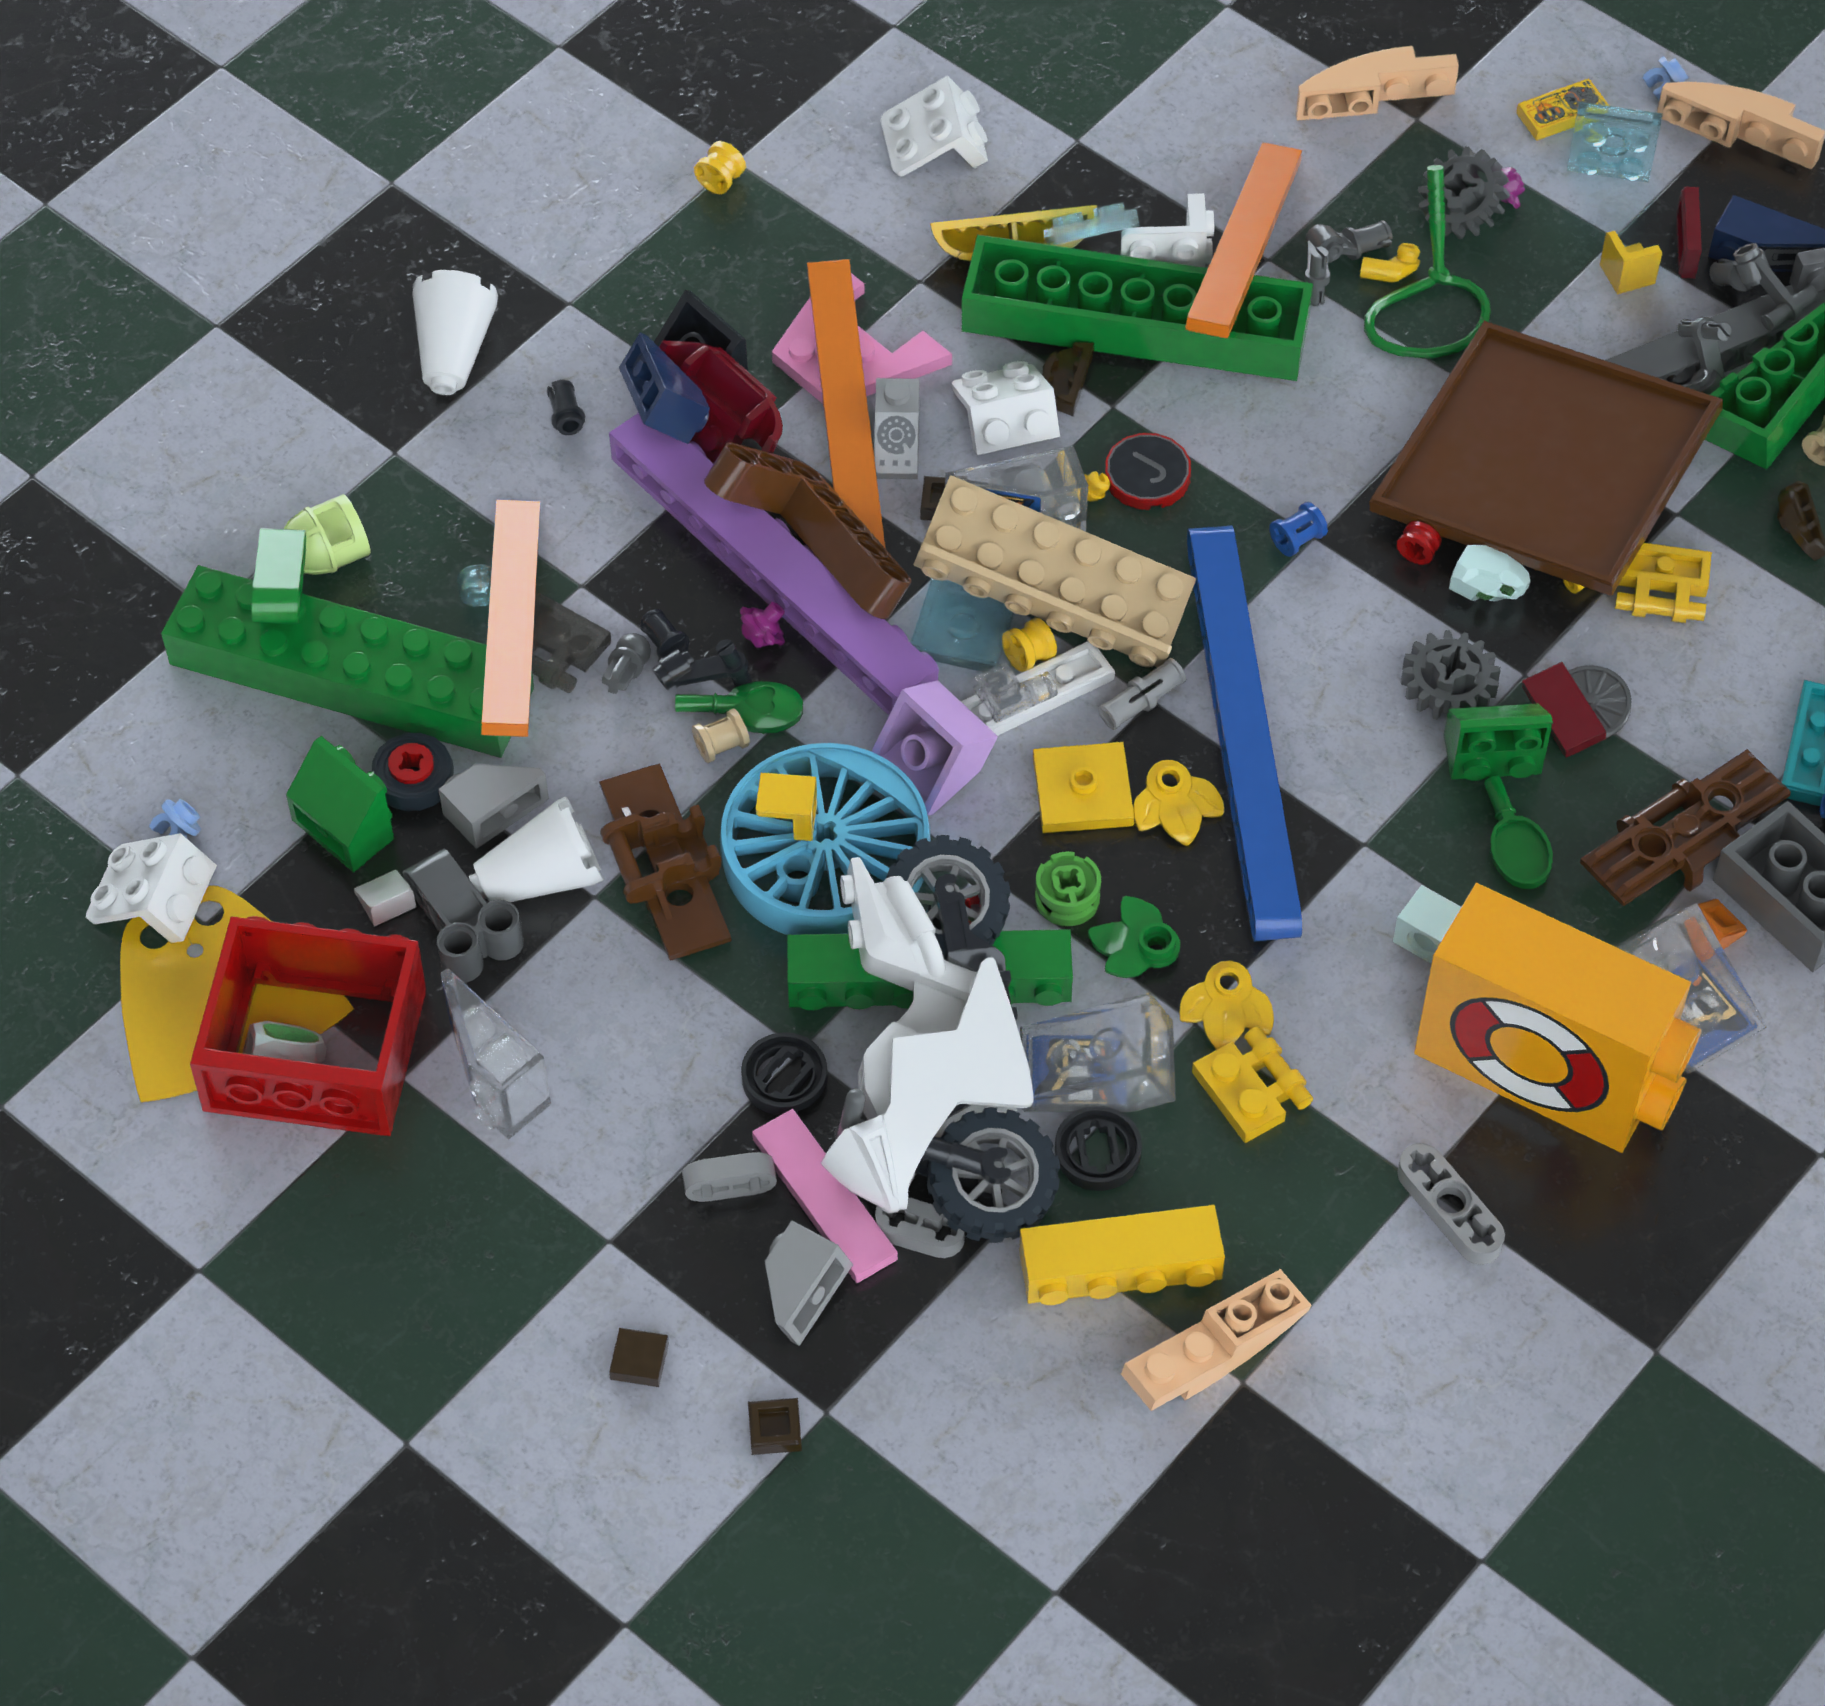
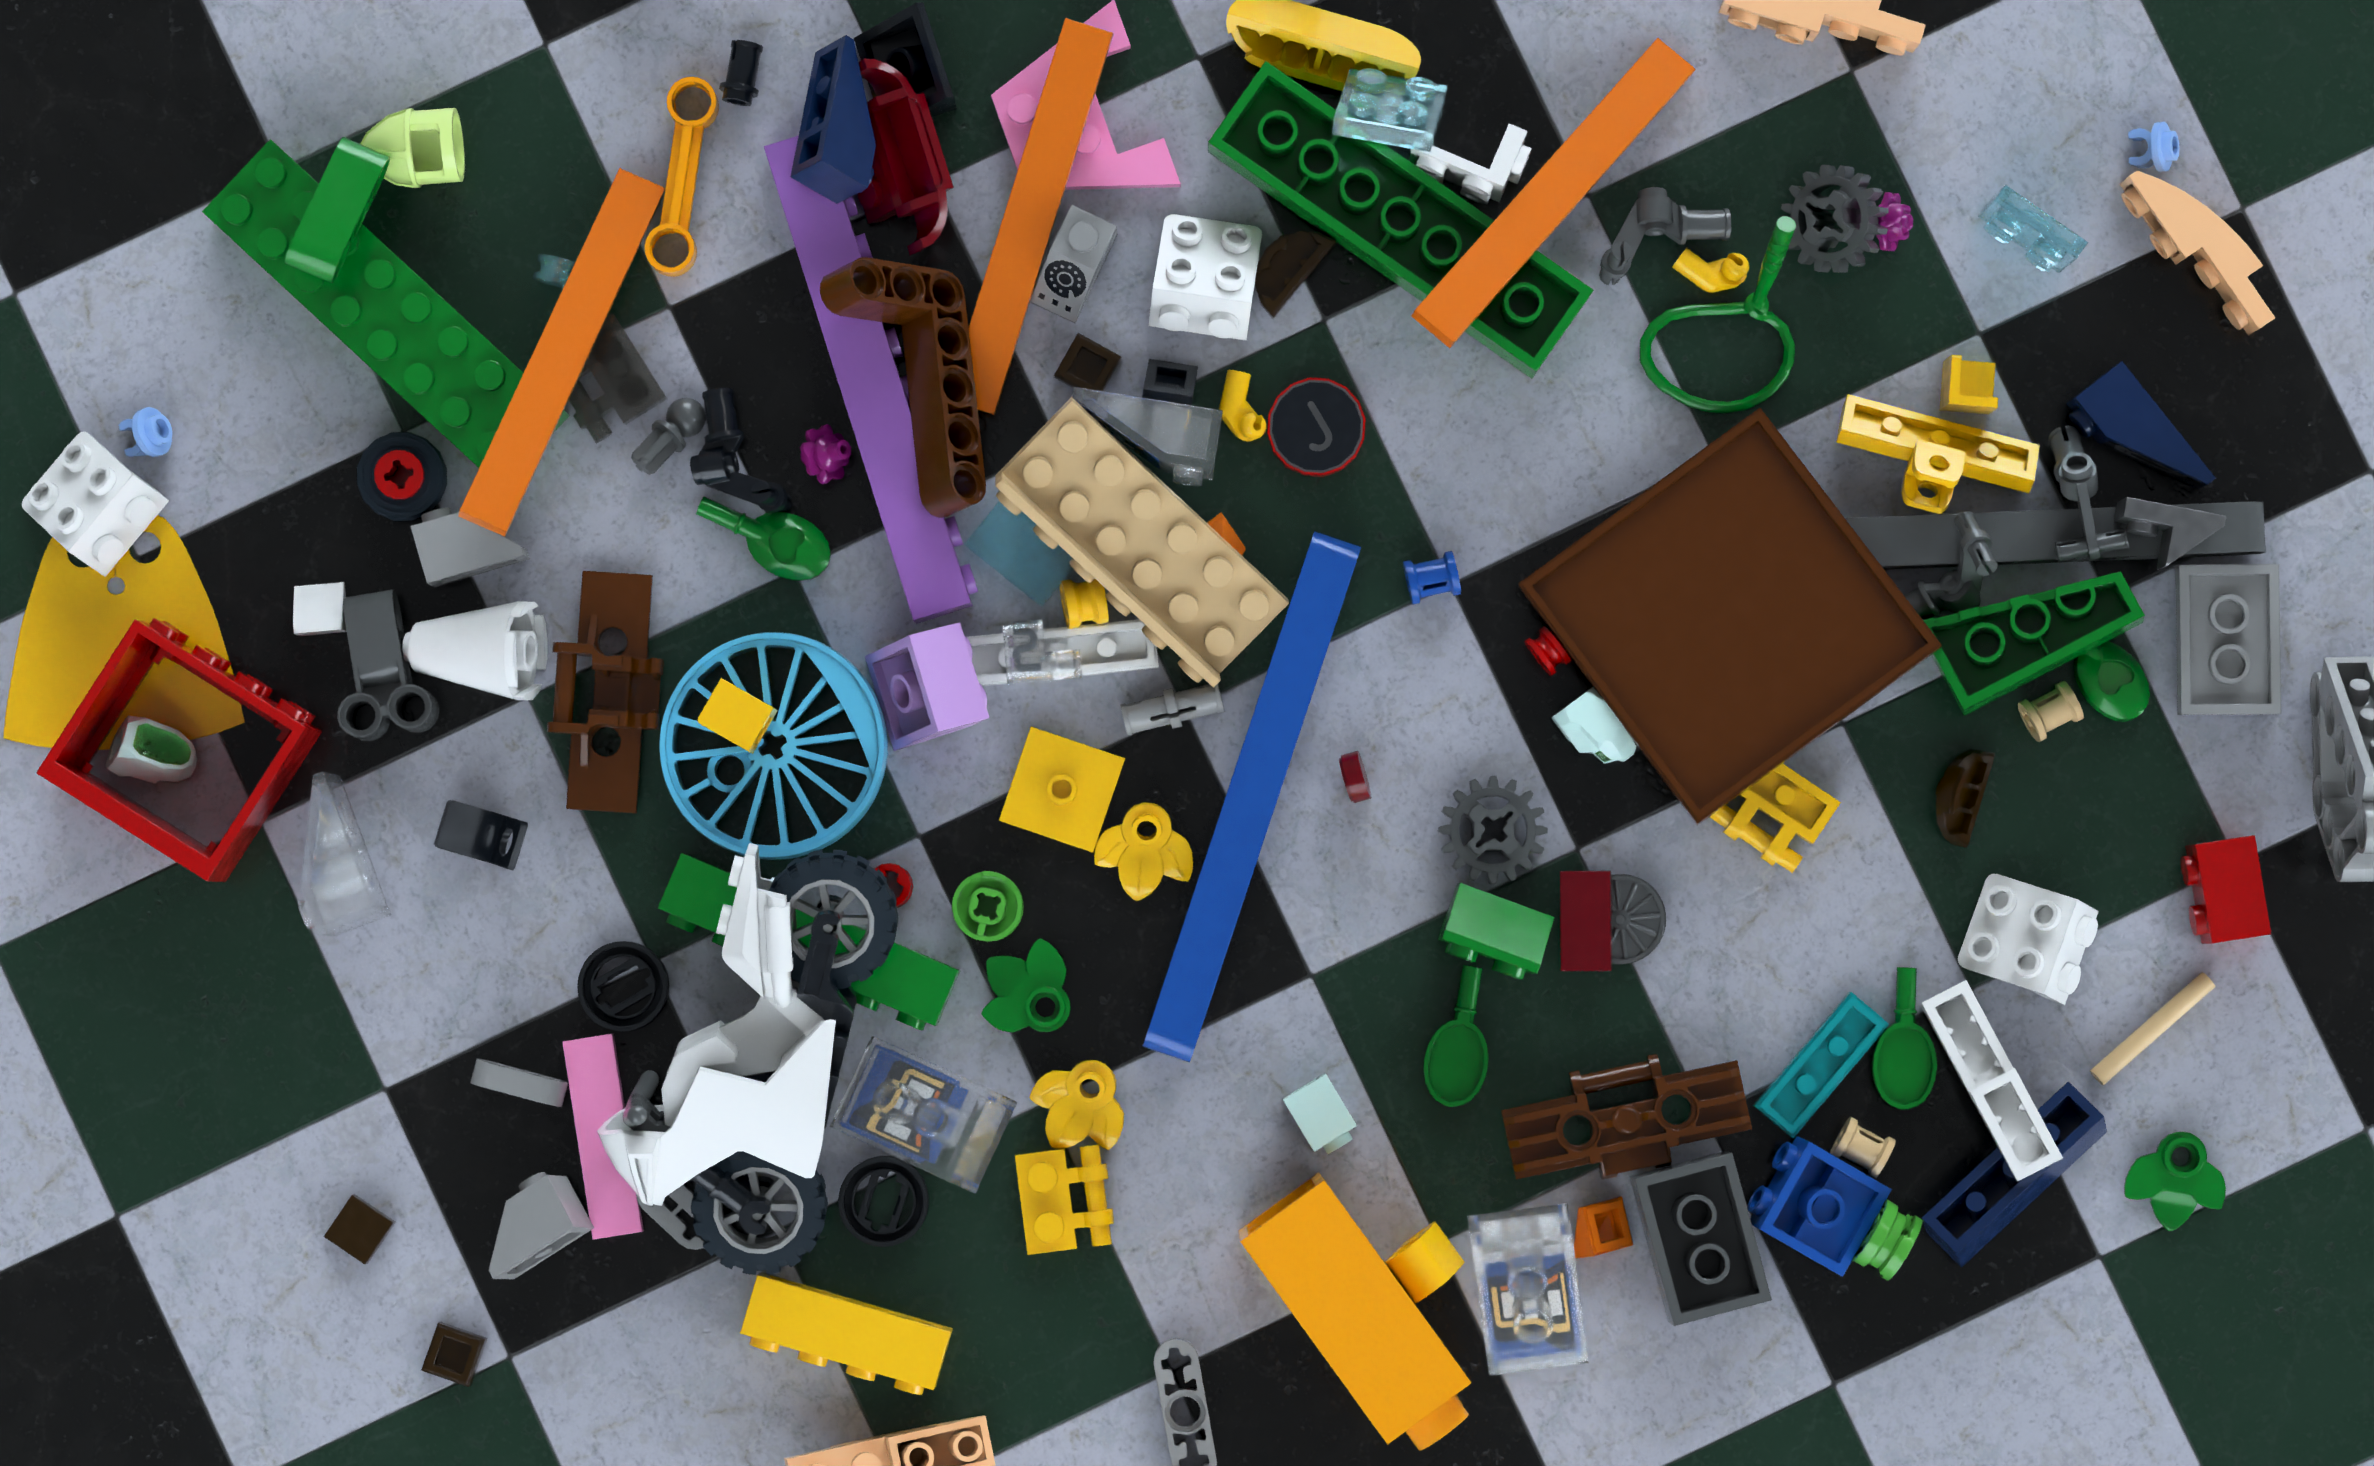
camera: 25 degrees right, 30 degrees up
(340, 805) = (308, 499): green slope -> none
(550, 491) = (681, 176): none -> light orange piece
(606, 1004) = (480, 834): none -> black bracket
(720, 735) = (725, 571): tan bush -> none
(1318, 682) = (1355, 777): none -> dark red tile
(1557, 109) = (2017, 134): tile -> none
(1634, 310) = (1936, 451): none -> yellow plate
(1688, 232) = (2054, 375): dark red tile -> none

